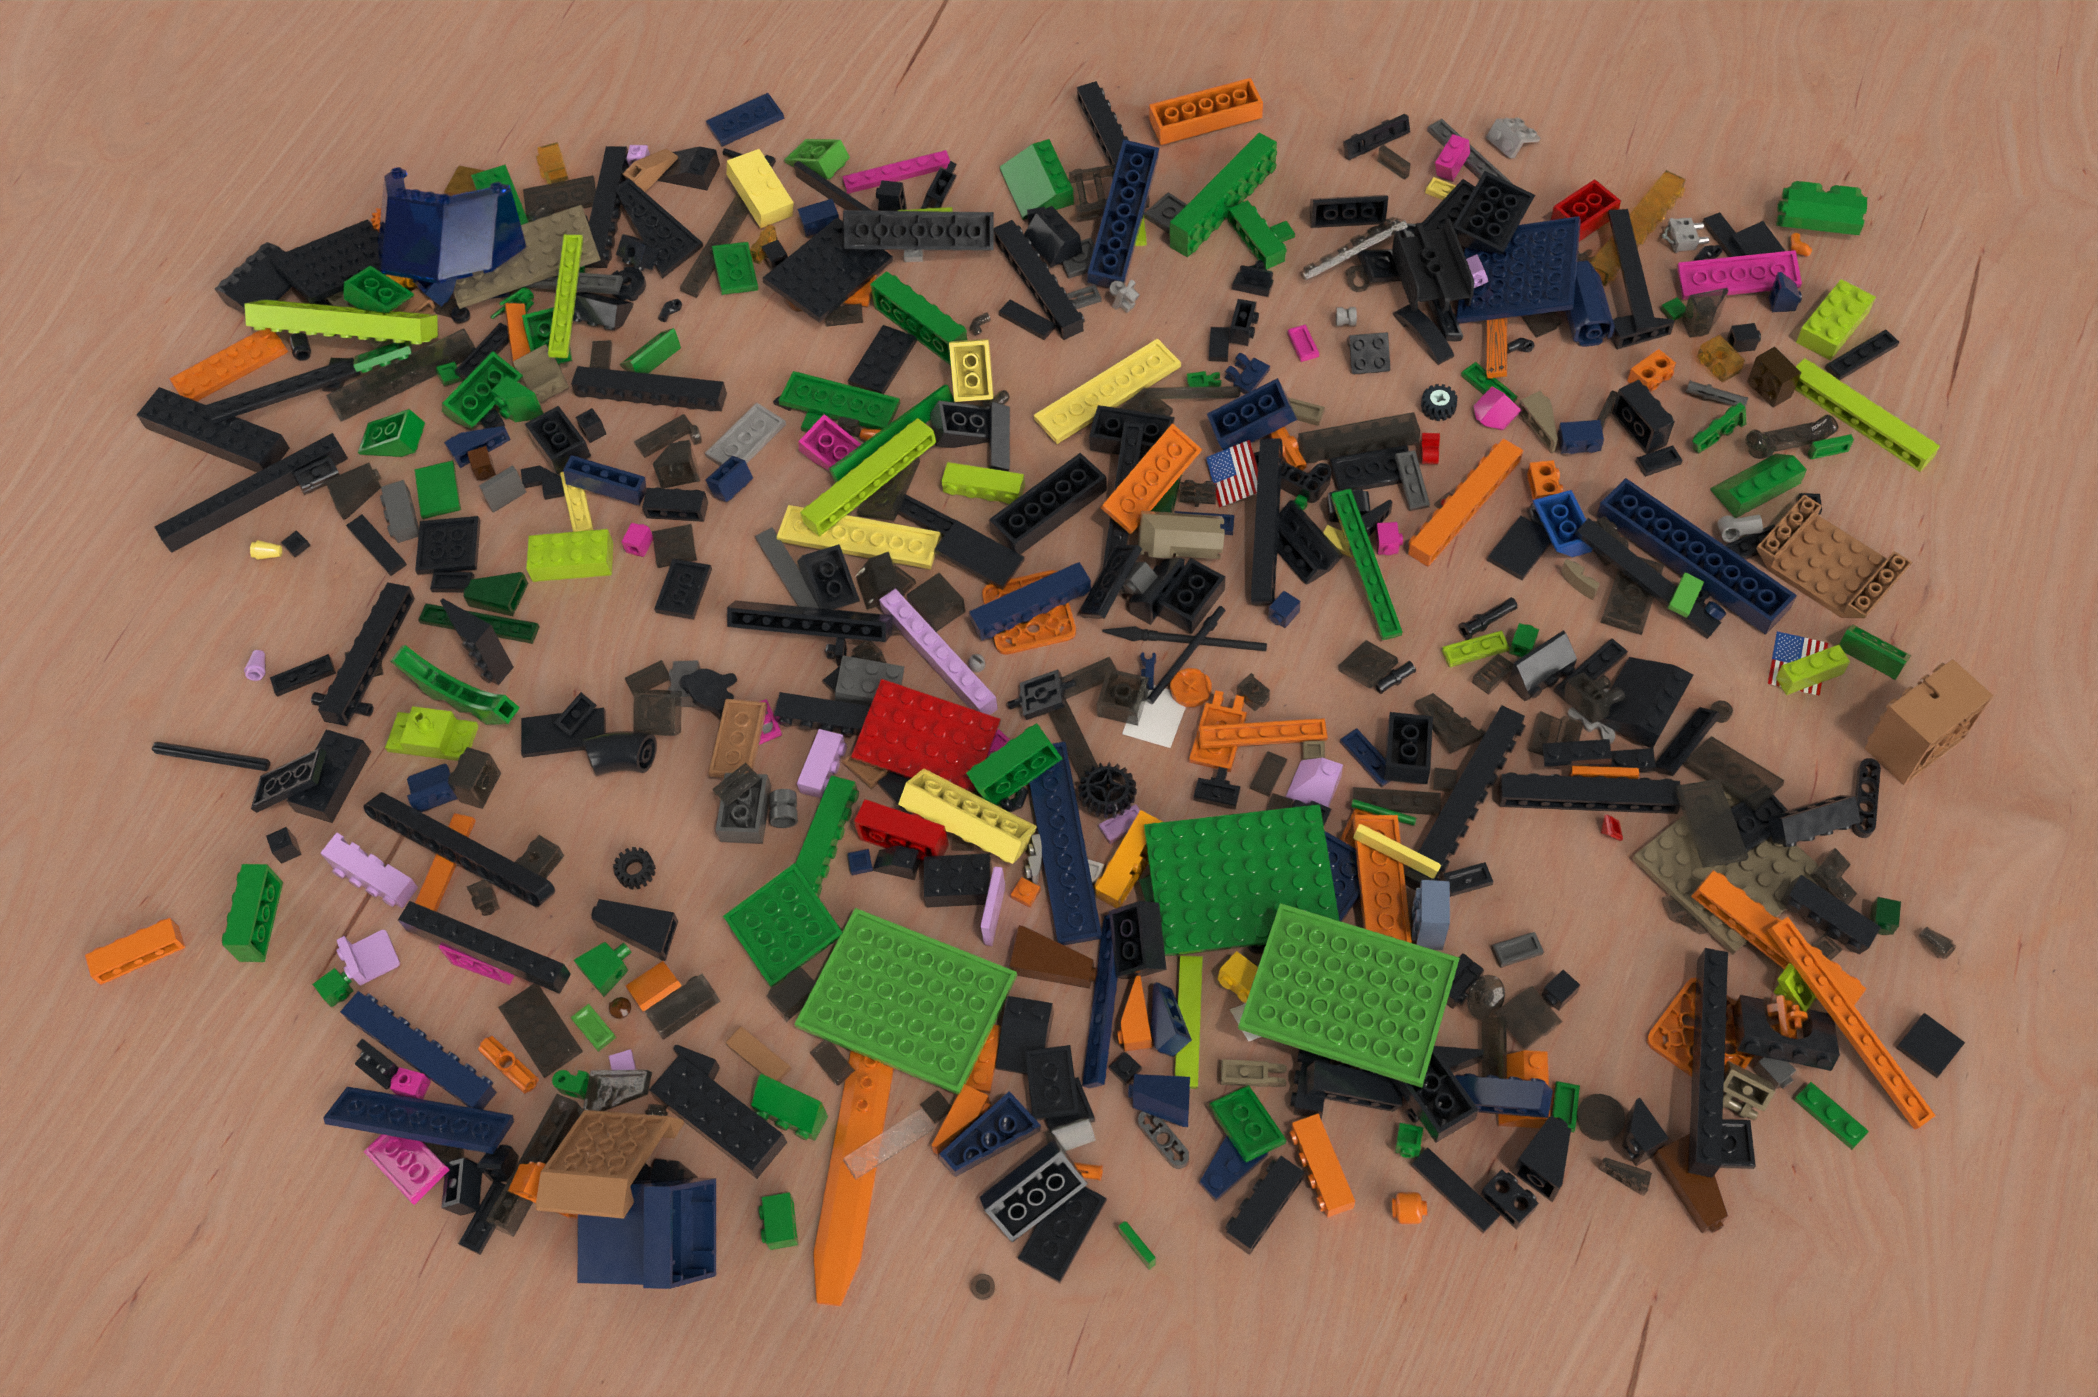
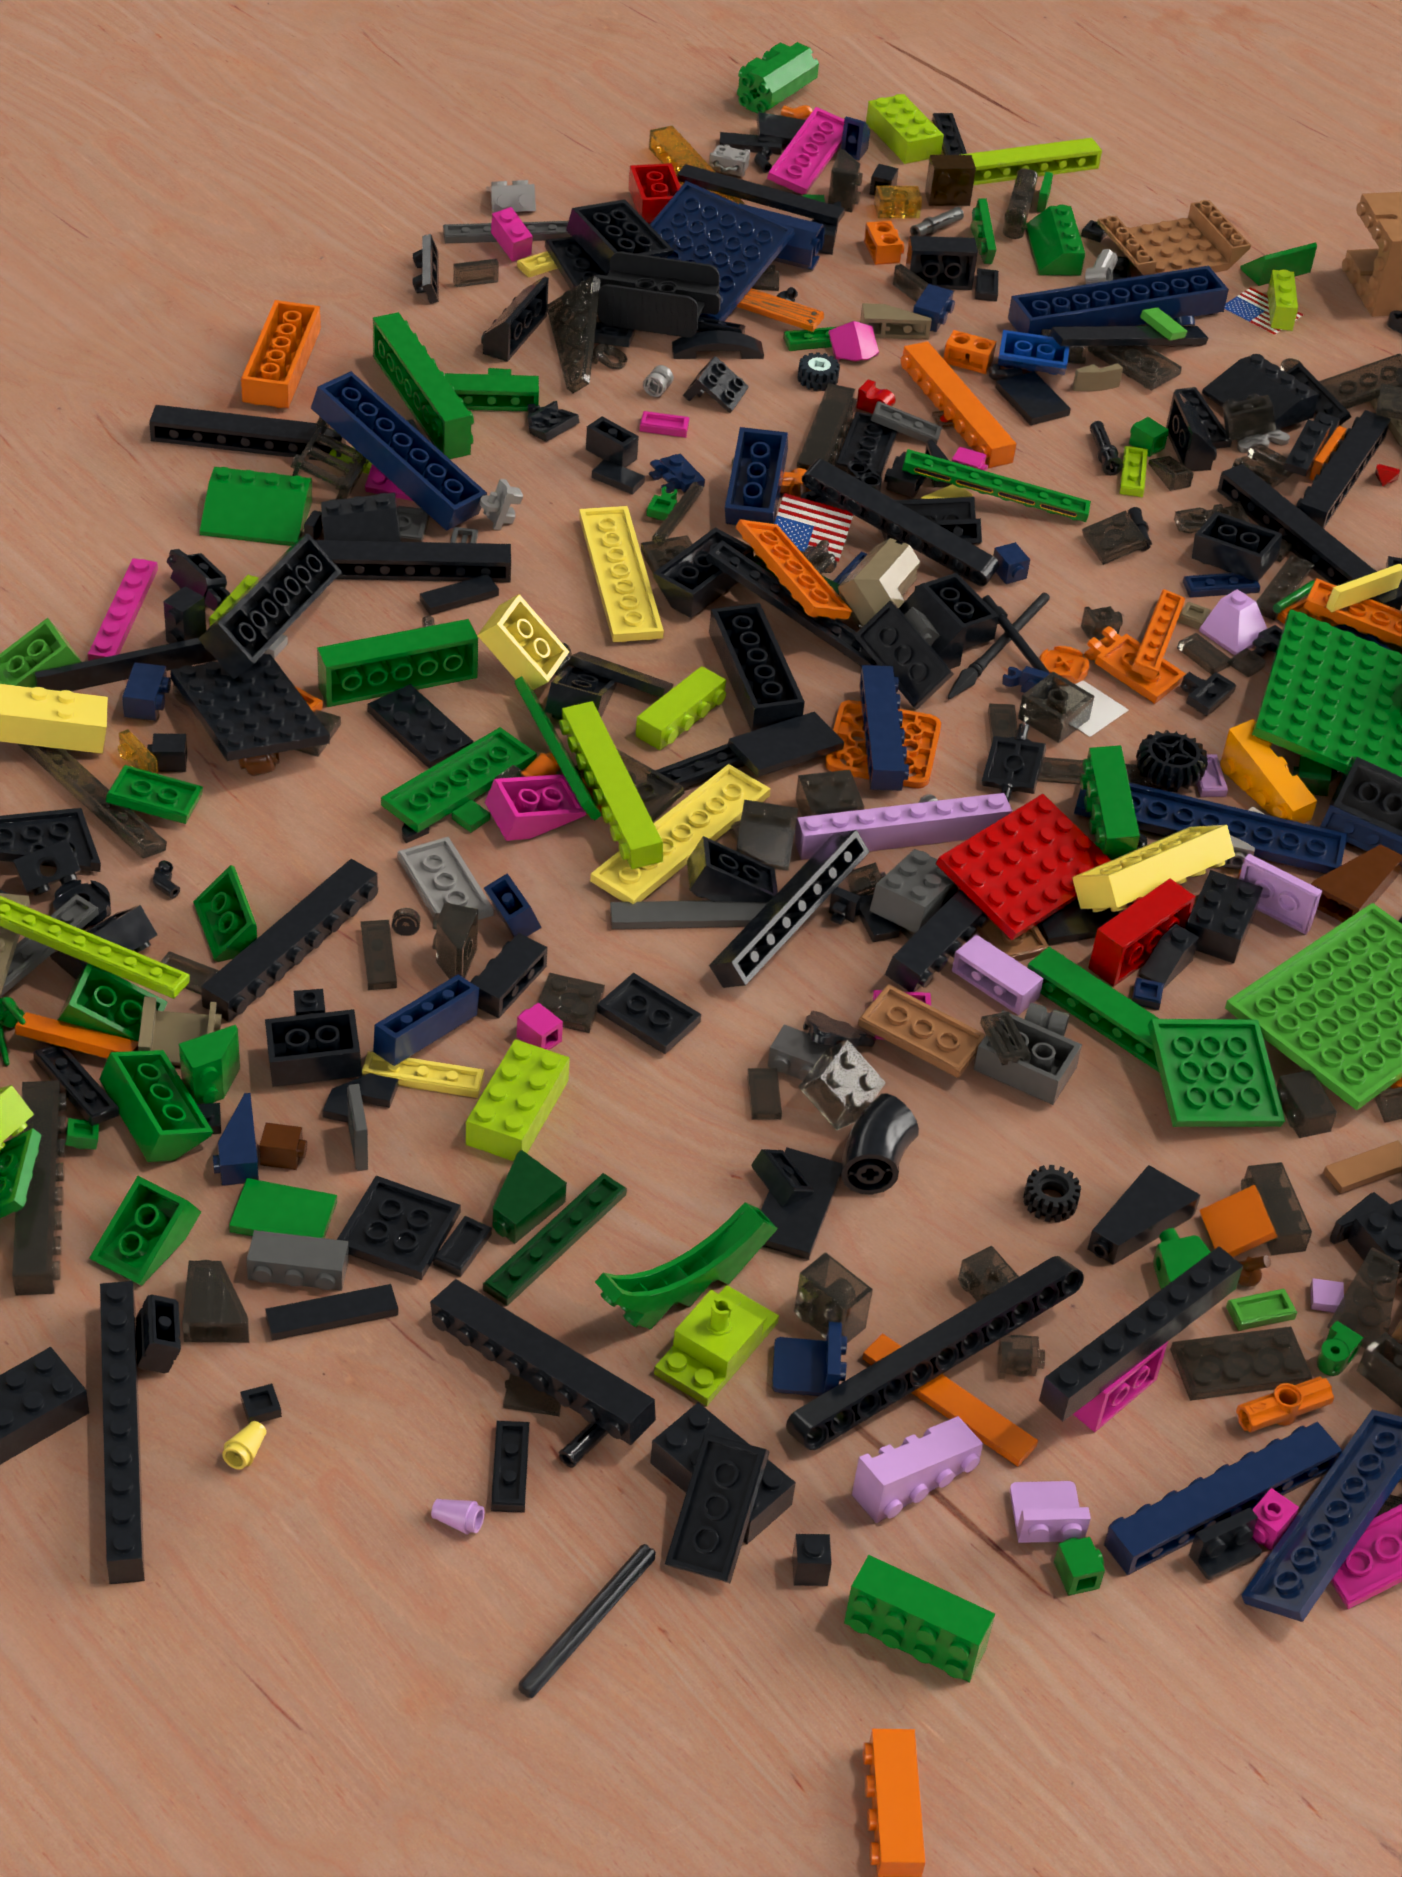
camera: 75 degrees left, 15 degrees down
(481, 643) = (627, 1213): black slope -> none

